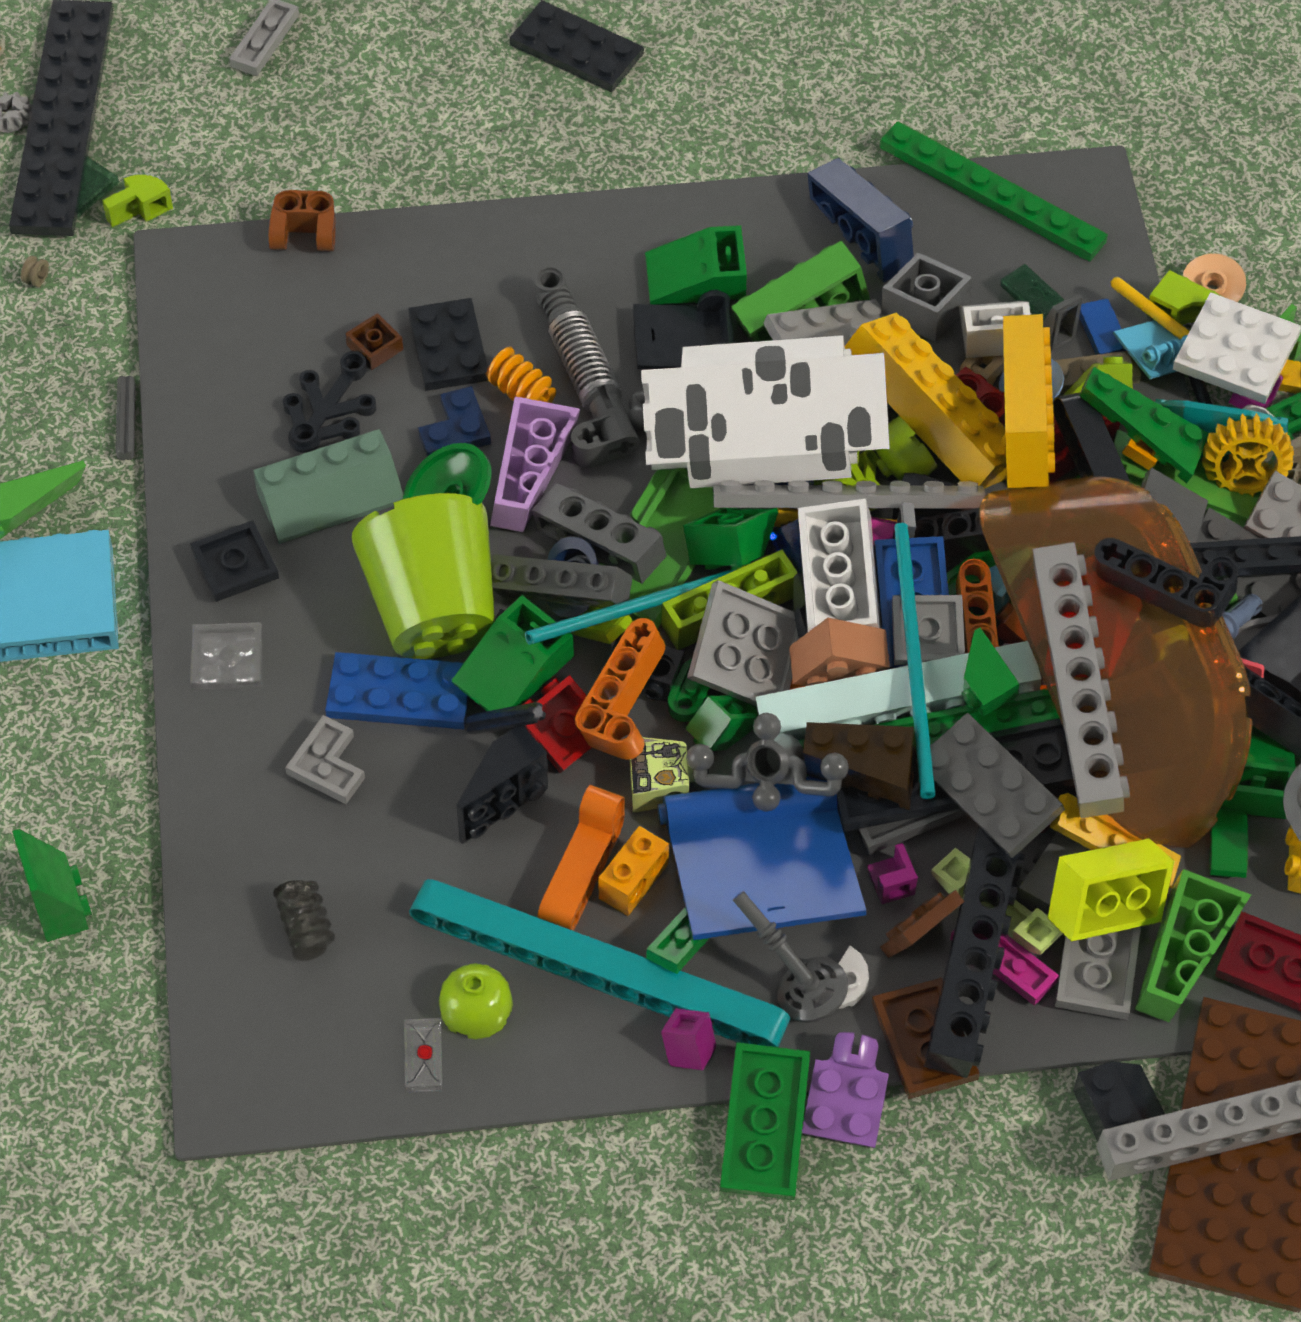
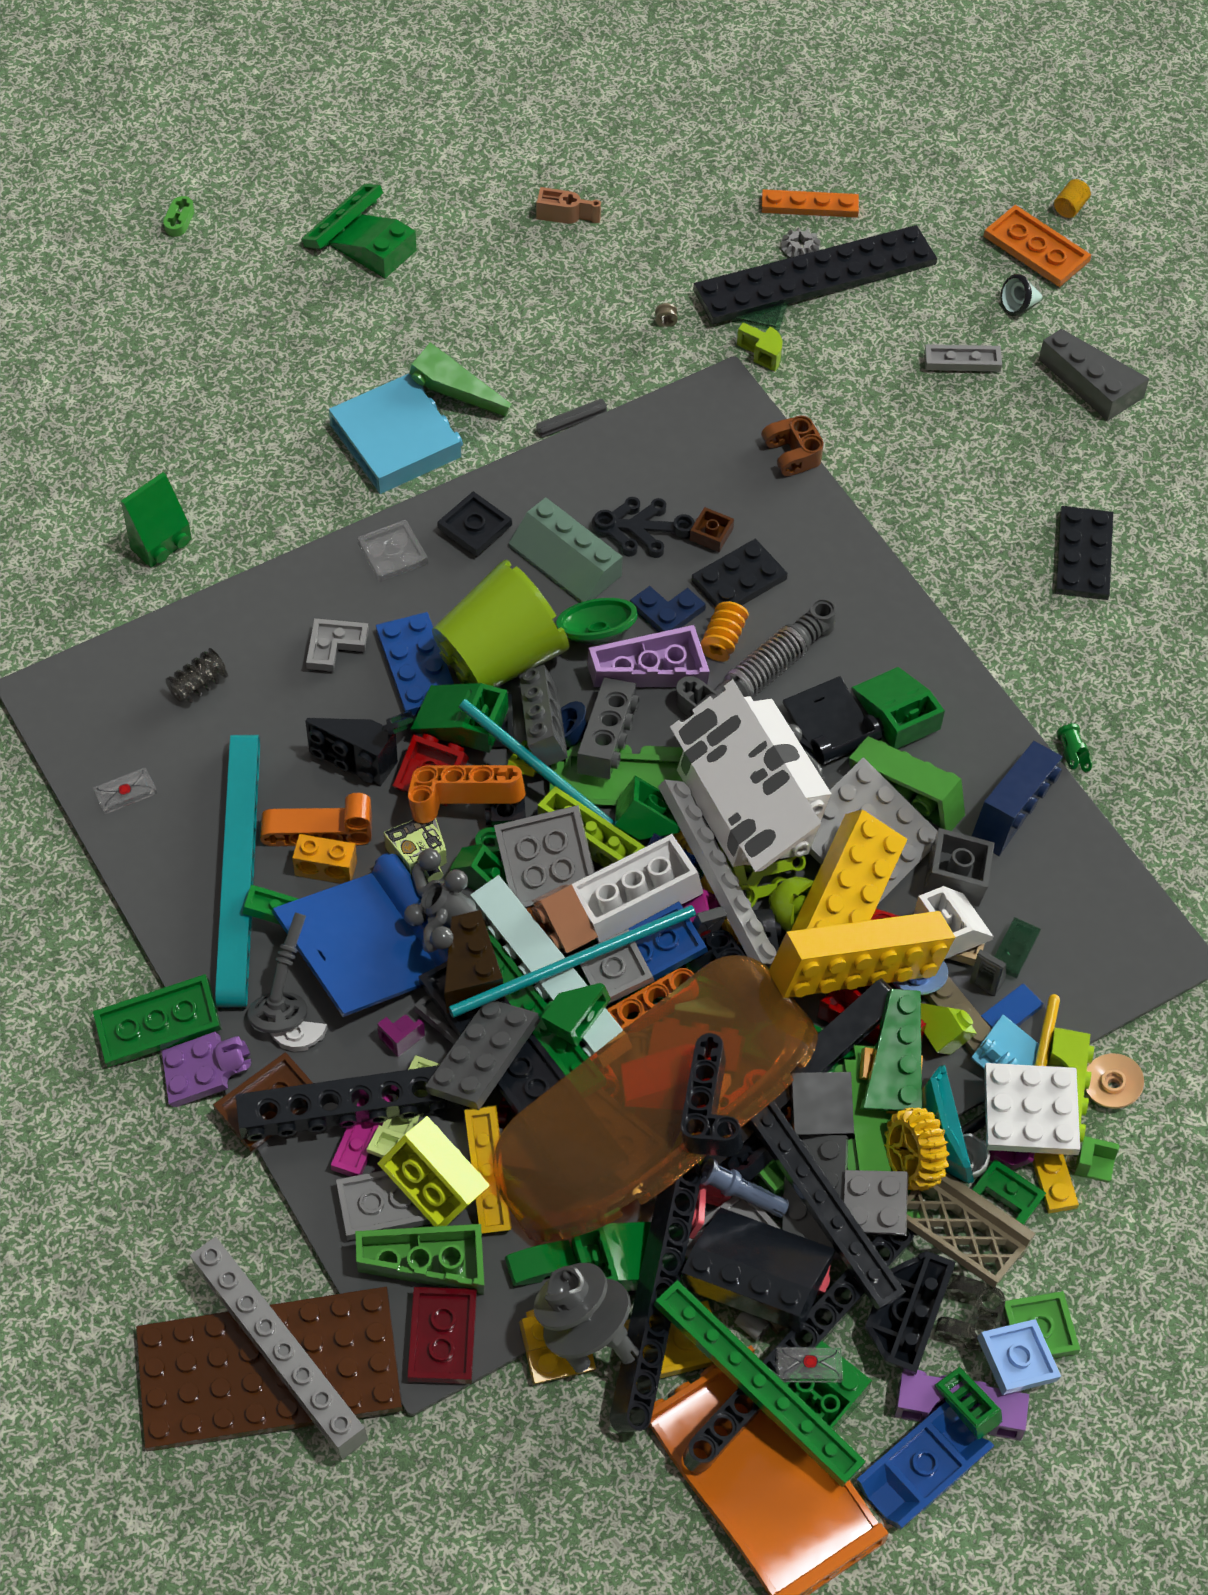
camera: 65 degrees right, 0 degrees up
(475, 1001) = (179, 804): lime cylinder -> none
(689, 1039) = (199, 945): magenta panel -> none
(815, 152) = (1074, 748): none -> green piece
(920, 922) = (348, 1054): reddish brown plate -> none
(993, 191) = (1110, 886): green plate -> none
(1093, 794) = (577, 1070): light grey brick -> none
(1115, 1095) = (273, 1259): black slope -> none

